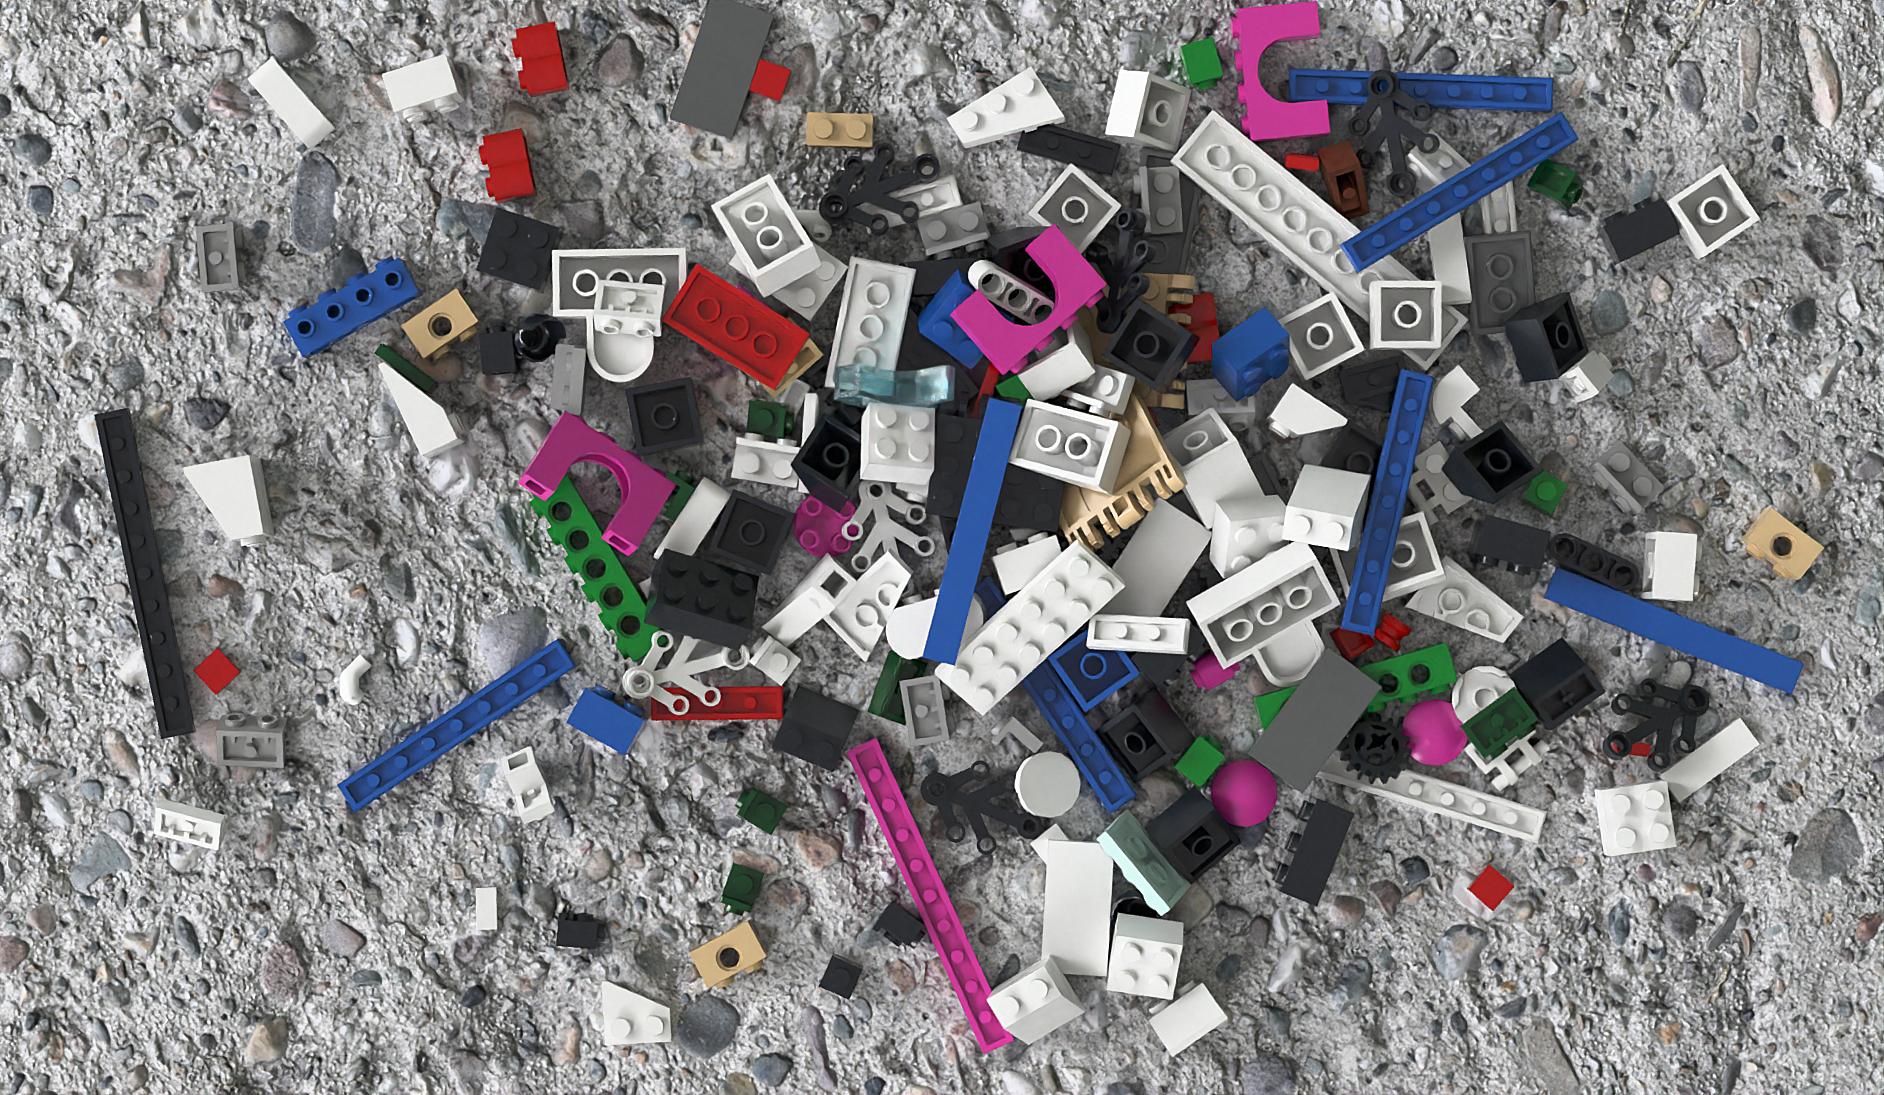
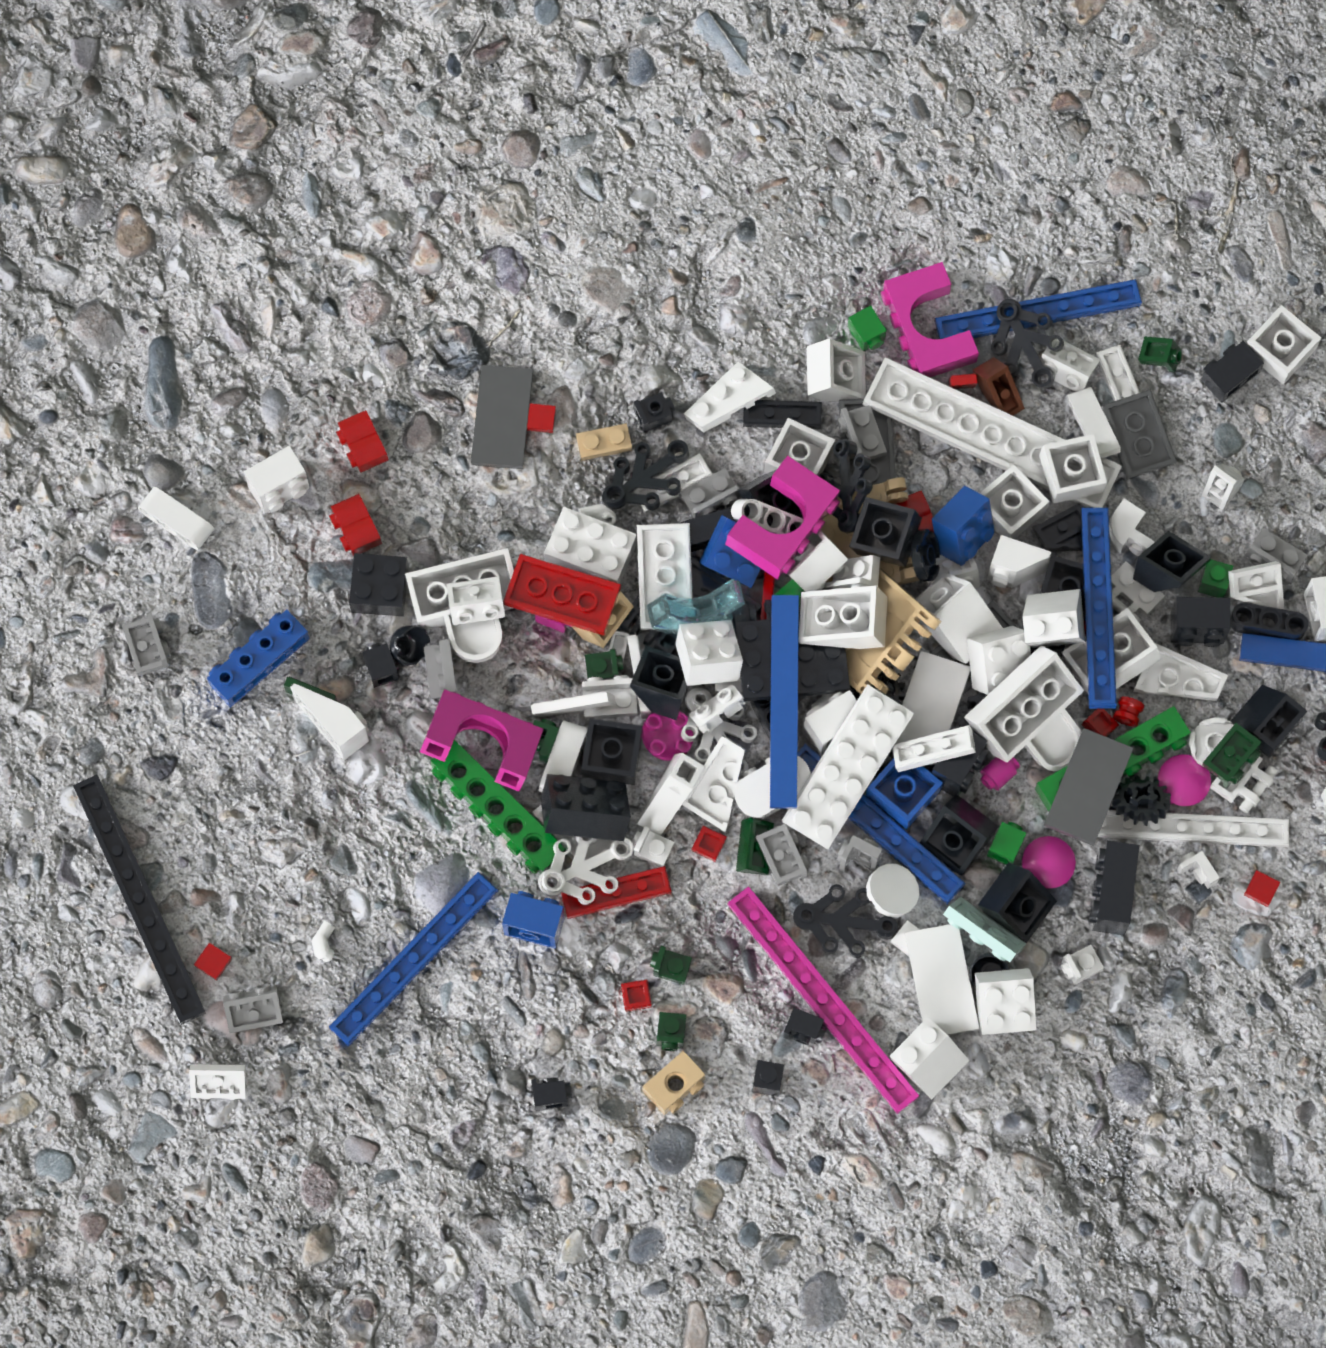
camera: 10 degrees left, 15 degrees down
(235, 496) = (197, 818): white slope -> none
(422, 326) = (334, 640): tan brick -> none
(486, 908) = (471, 1096): white piece -> none
(528, 784) = (482, 987): white brick -> none
(633, 1018) = (610, 1153): white wing -> none
(665, 416) = (522, 680): black brick -> none
(710, 834) = (636, 995): none -> red tile
(719, 462) = (573, 704): none -> white tile
(767, 235) = (569, 522): white slope -> none
(815, 728) = (698, 893): black slope -> none
(843, 670) = (709, 843): none -> red tile
(884, 513) = (726, 701): none -> white hinge
(901, 116) = (652, 419): none -> black brick
(1185, 1016) = (1050, 1043): white slope -> none
(1192, 382) = (924, 554): none -> black tile
(1249, 927) = (1081, 964): none -> white bracket
(1426, 851) = (1203, 869): none -> white bracket
(1459, 192) = (1088, 373): blue tile -> none
(1546, 338) = (1184, 464): black slope -> none
(1592, 516) = (1258, 585): none -> white wing

